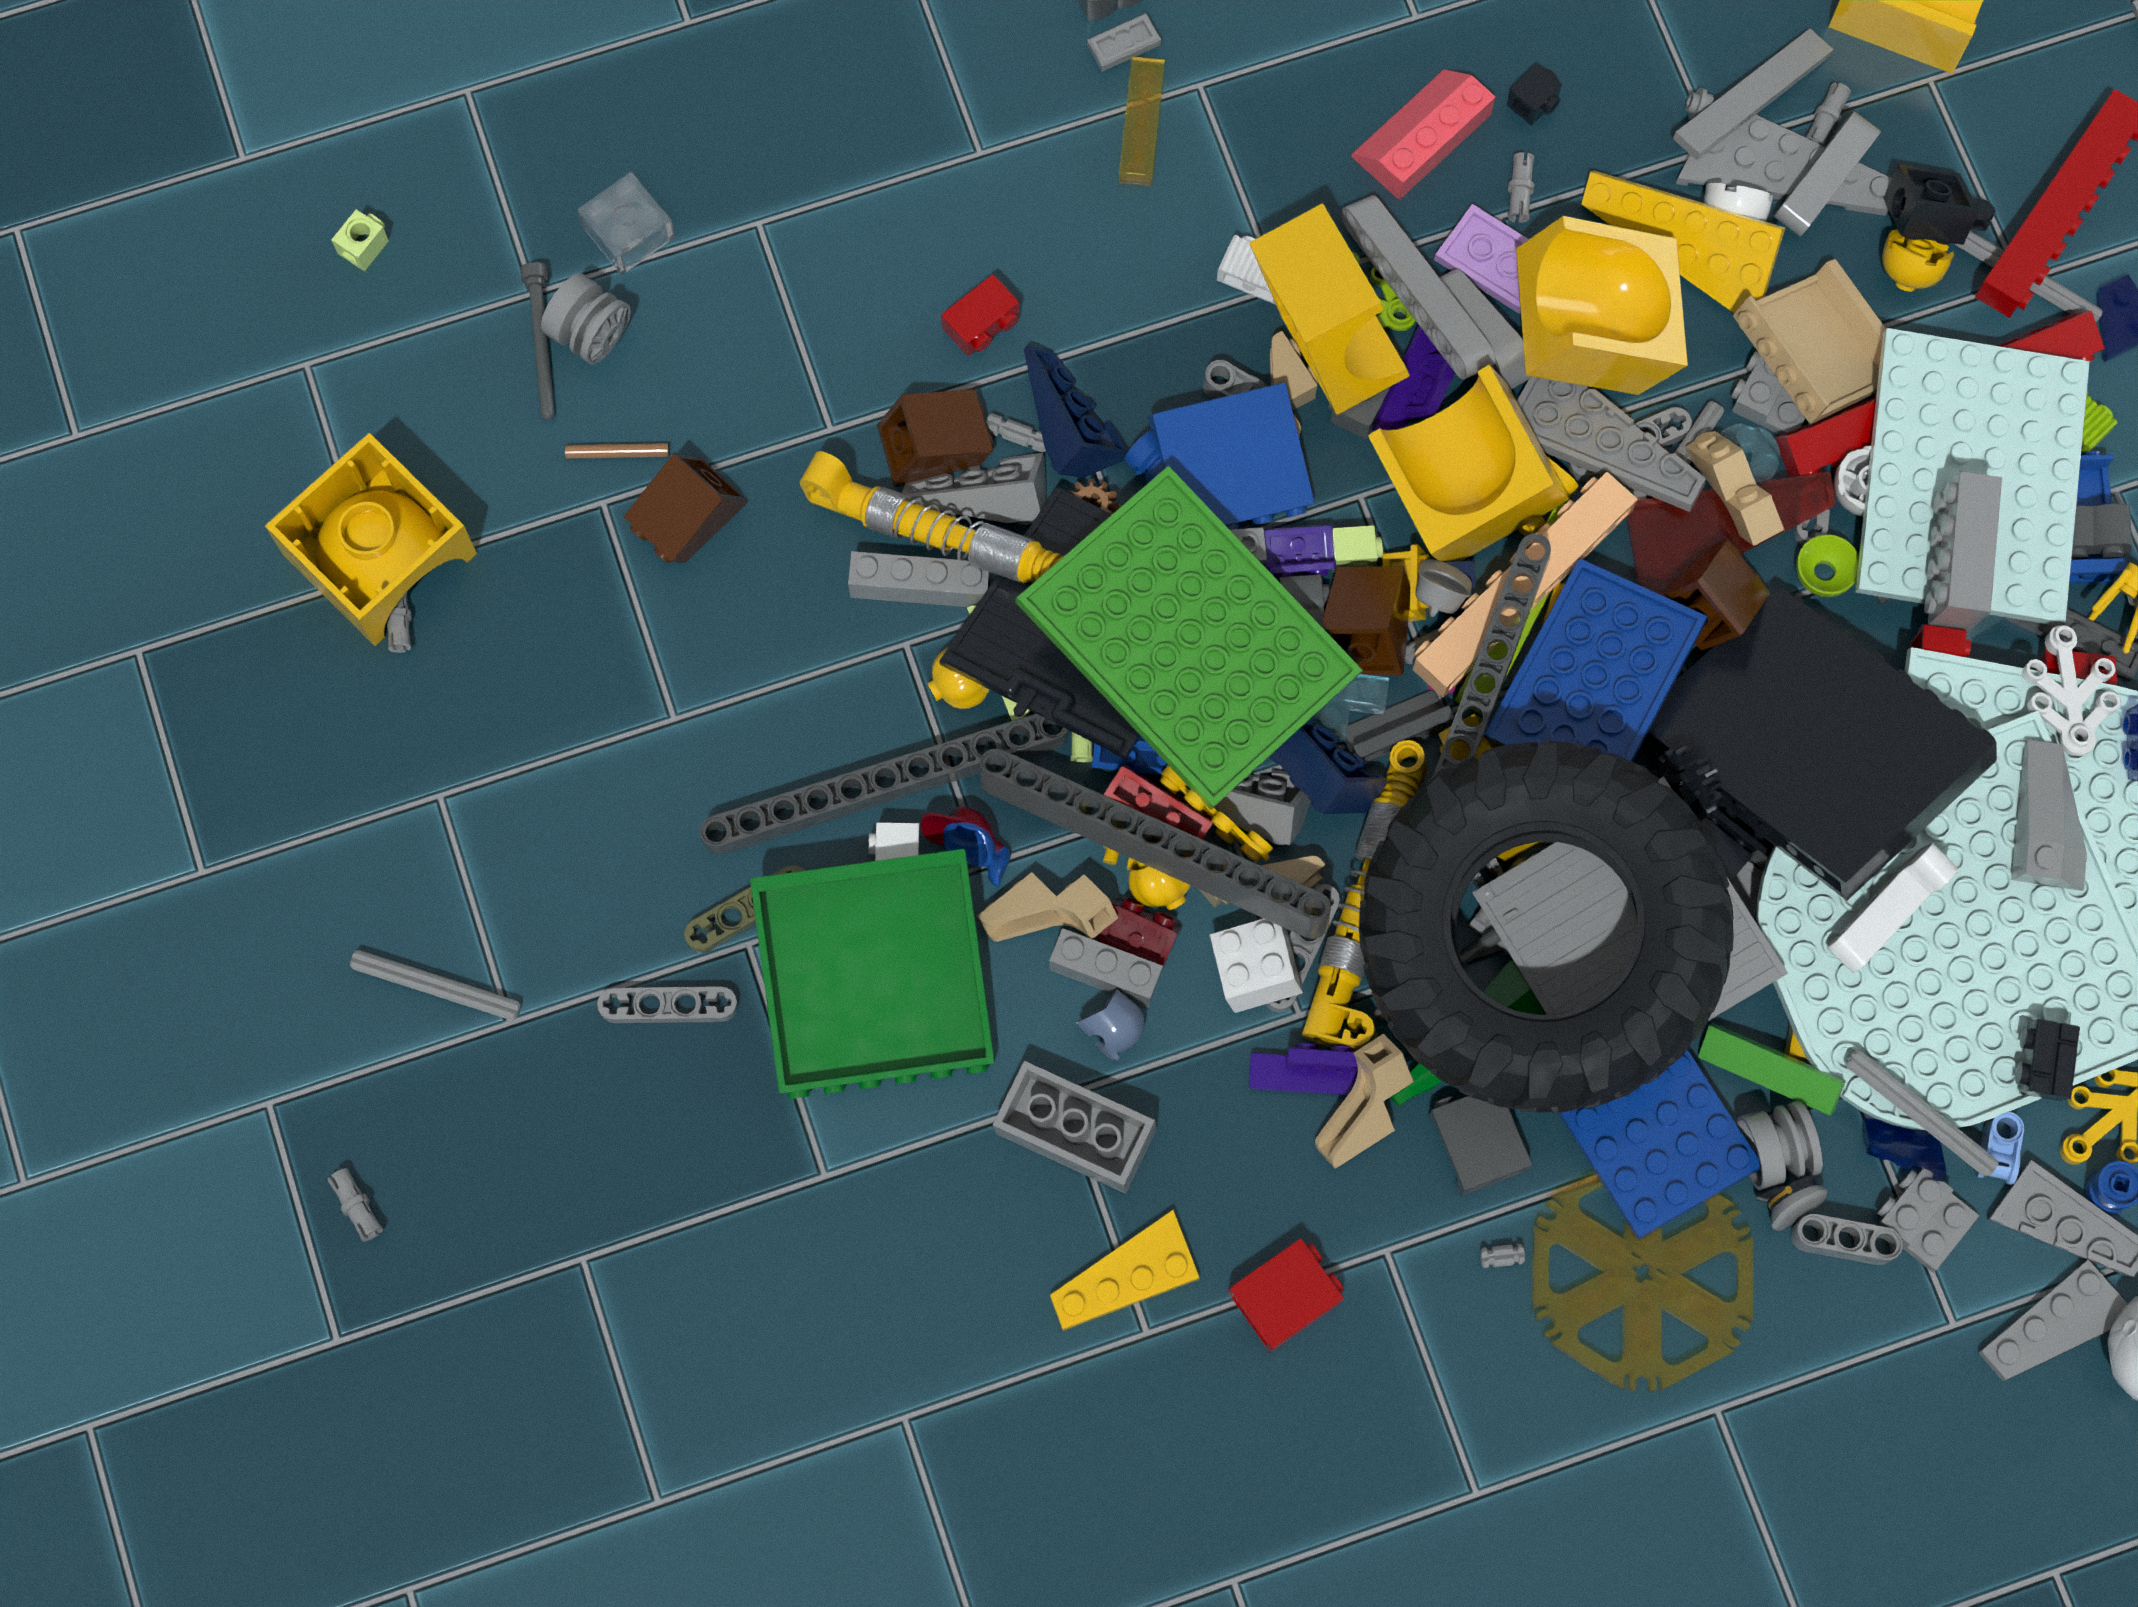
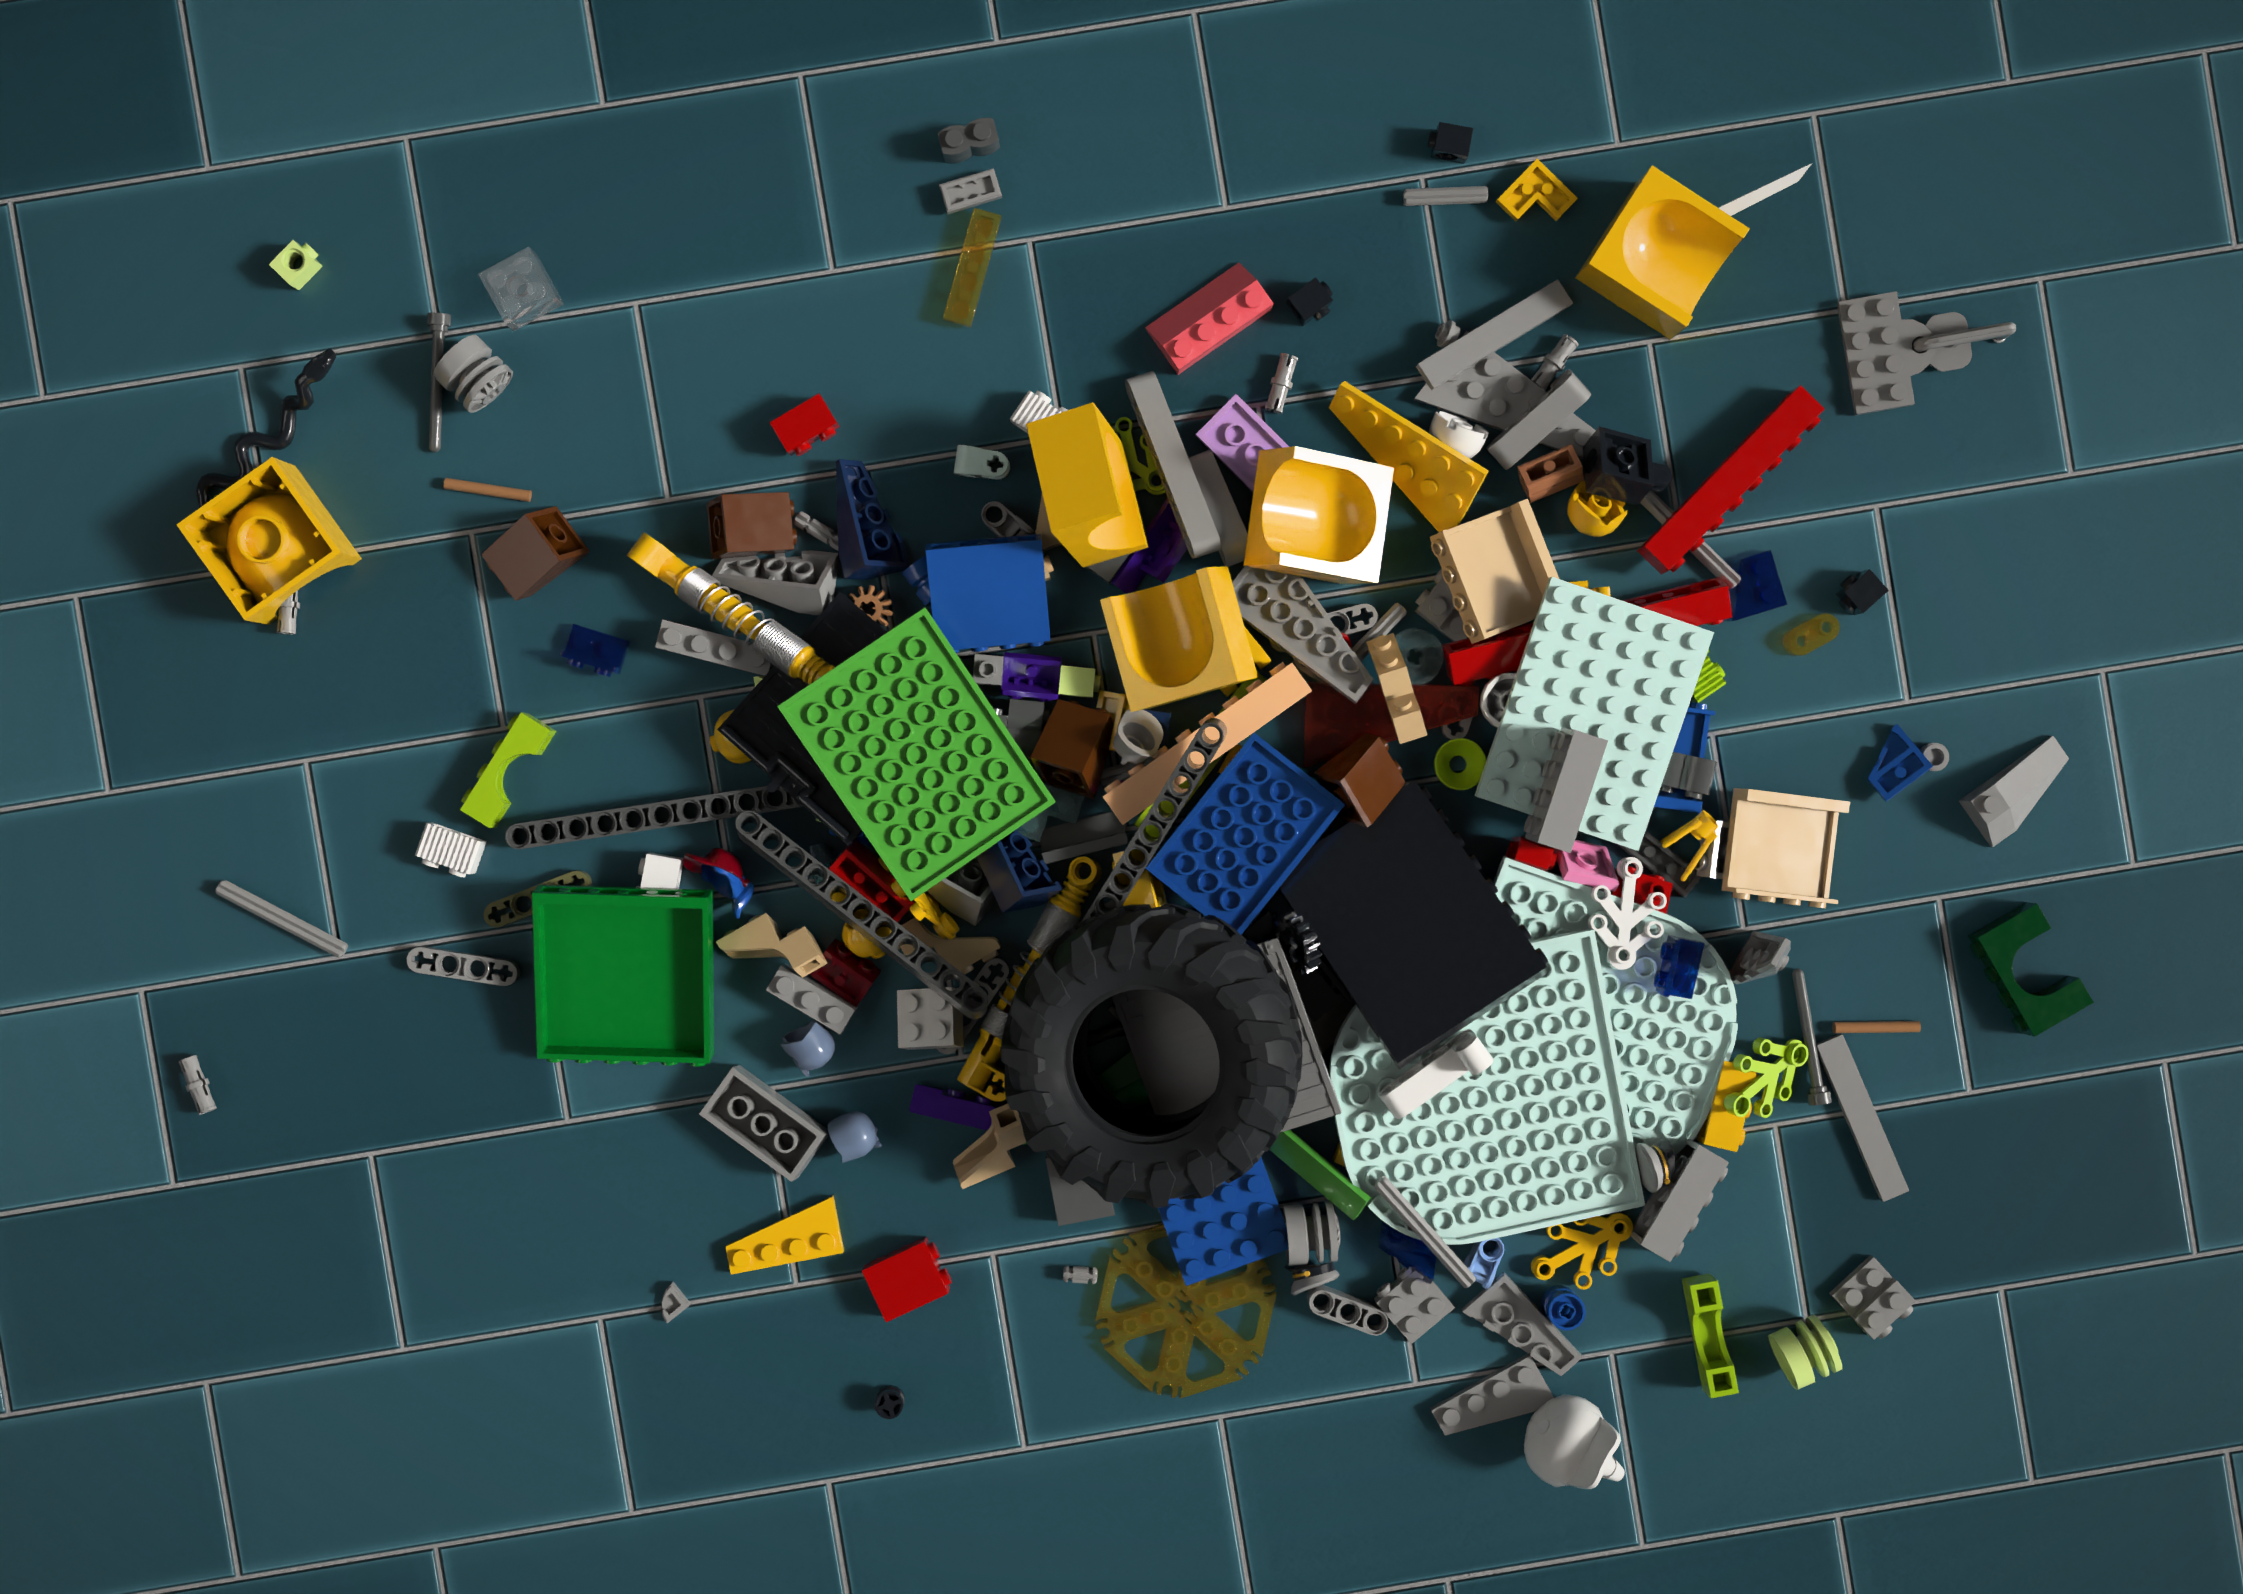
camera: 10 degrees right, 15 degrees up
(399, 342) = (312, 372): none -> black animal
(632, 865) = (450, 849): none -> white brick
(705, 721) = (487, 799): none -> lime arch
(773, 609) = (595, 649): none -> clear blue bracket
(995, 1380) = (673, 1302): none -> light grey tile
(1187, 1124) = (853, 1135): none -> sand blue helmet
(1188, 326) = (975, 463): none -> light aqua piece
(1296, 1449) = (887, 1407): none -> black wheel
(1854, 228) = (1550, 473): none -> nougat brick
(2006, 648) = (1587, 865): none -> bright pink tile
(2047, 1059) = (1533, 1208): black brick -> none
(2048, 828) = (1578, 1029): light grey wedge -> none

